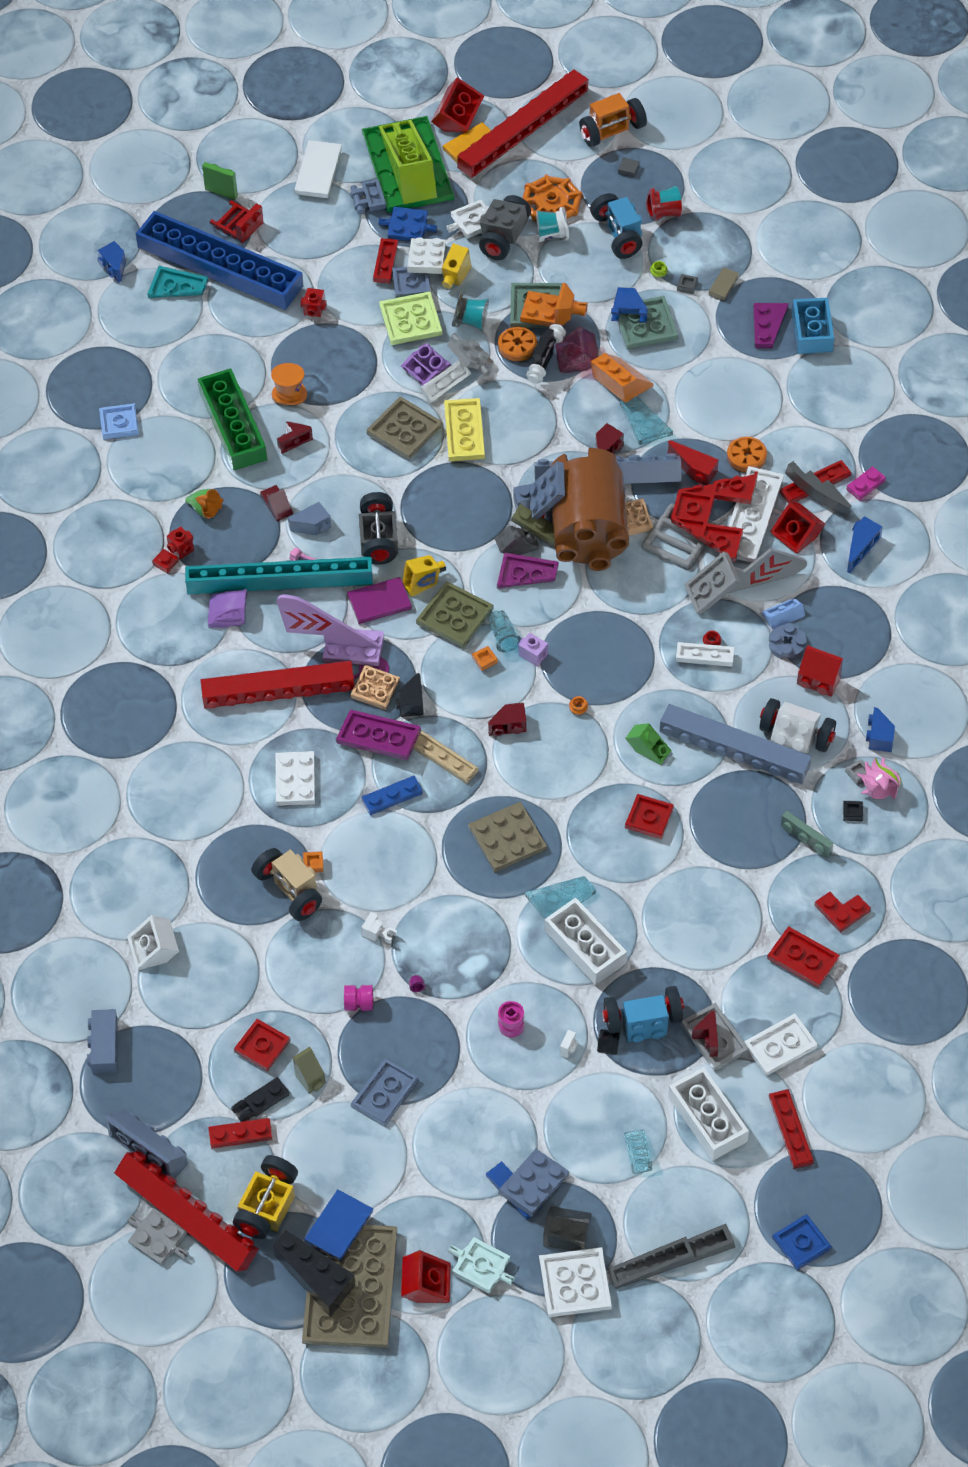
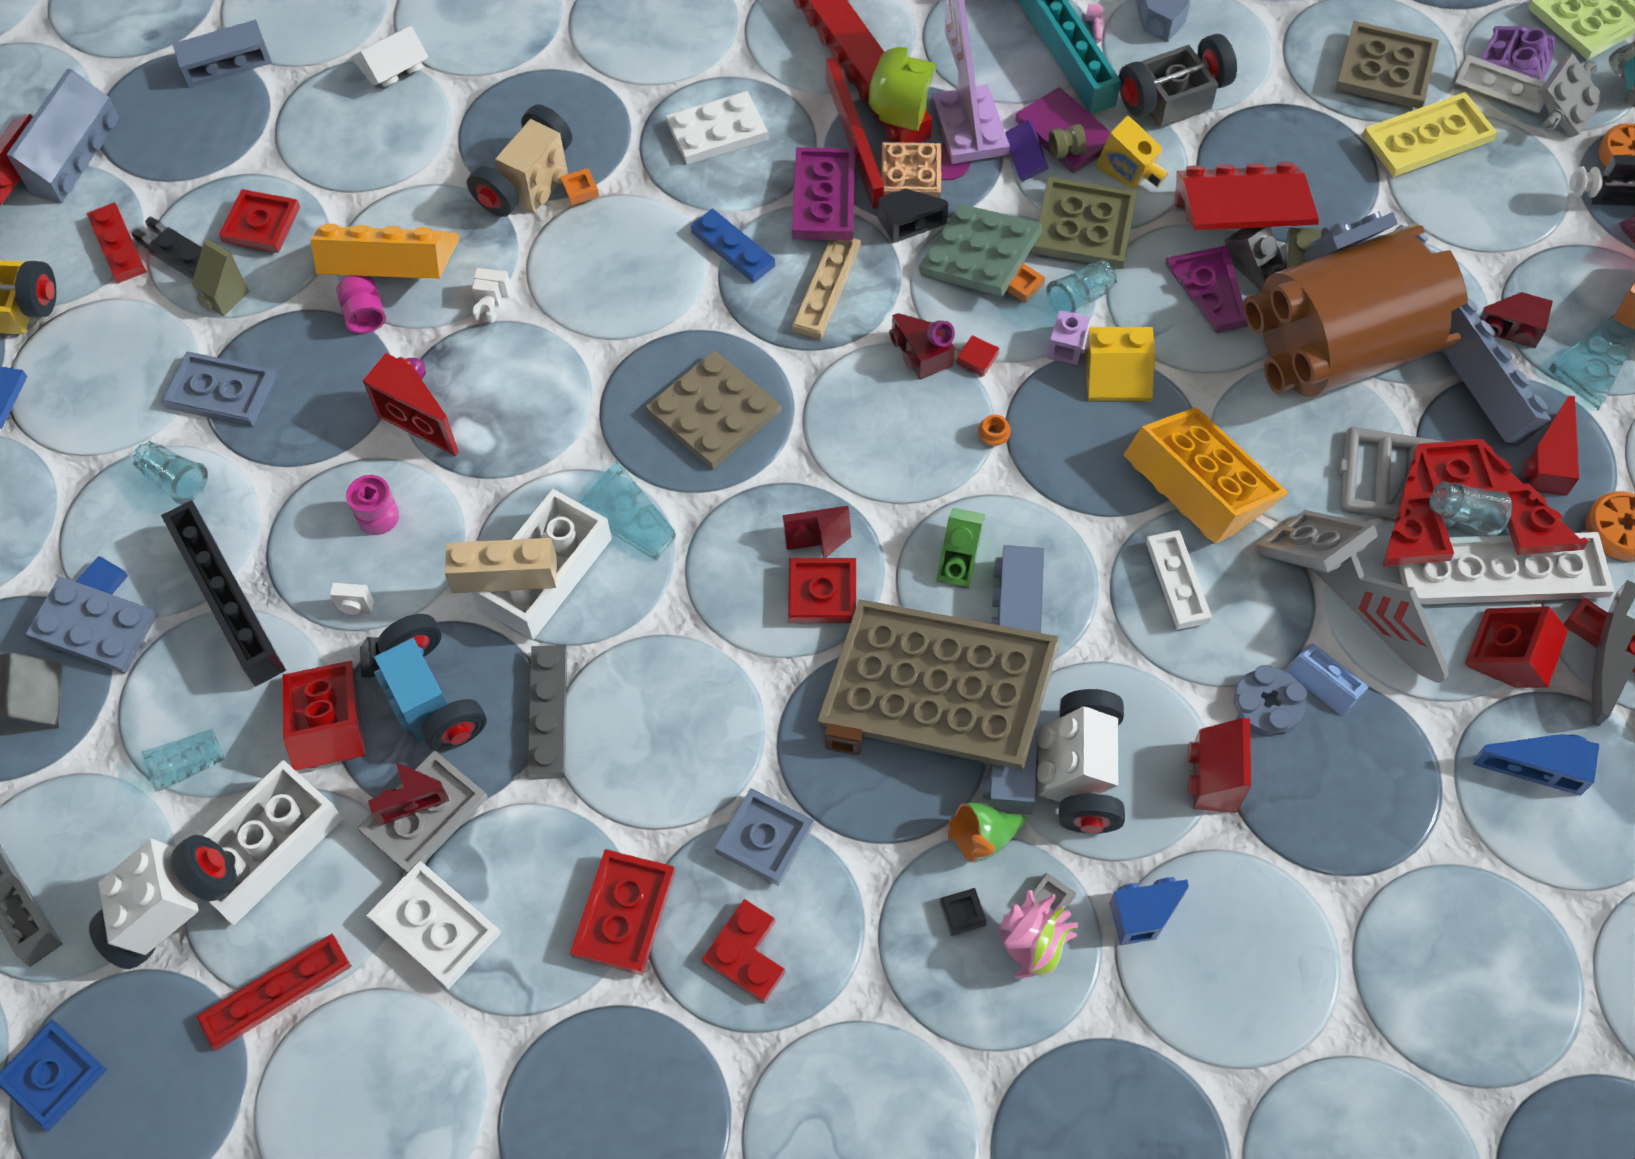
camera: 70 degrees right, 5 degrees up
(328, 970) = (382, 251): none -> light orange slope
(330, 665) = (901, 88): none -> lime brick
(334, 705) = (854, 131): none -> red tile
(389, 624) = (1026, 150): none -> dark purple tile
(398, 600) = (1067, 141): none -> olive wheel
(441, 1123) = (173, 473): none -> clear light blue plant
(451, 980) = (407, 403): none -> red slope
(454, 670) = (980, 249): none -> sand green plate
(482, 529) = (1245, 196): none -> red piece
(516, 704) = (940, 340): none -> magenta hinge
(525, 696) = (978, 355): none -> red tile
(542, 1105) = (223, 593): none -> black brick
(562, 631) = (1120, 363): none -> yellow slope
(593, 949) = (501, 565): none -> tan brick
(612, 804) = (819, 527): none -> dark red slope
(638, 517) = (1395, 398): light nougat tile -> none
(638, 1072) = (322, 716): none -> red slope
(646, 619) = (1203, 473): none -> light orange slope
(673, 966) = (547, 712): none -> dark grey plate
(712, 635) = (1218, 575): red plate -> none
(722, 507) = (1473, 507): none -> clear light blue plant
(730, 775) = (941, 683): none -> dark tan plate
(734, 1155) = (156, 895): none -> white brick
(743, 831) = (843, 739): none -> reddish brown tile
(784, 883) = (764, 836): none -> sand blue plate
(807, 834) = (875, 844): sand green plate -> none
(817, 786) = (983, 830): none -> hat

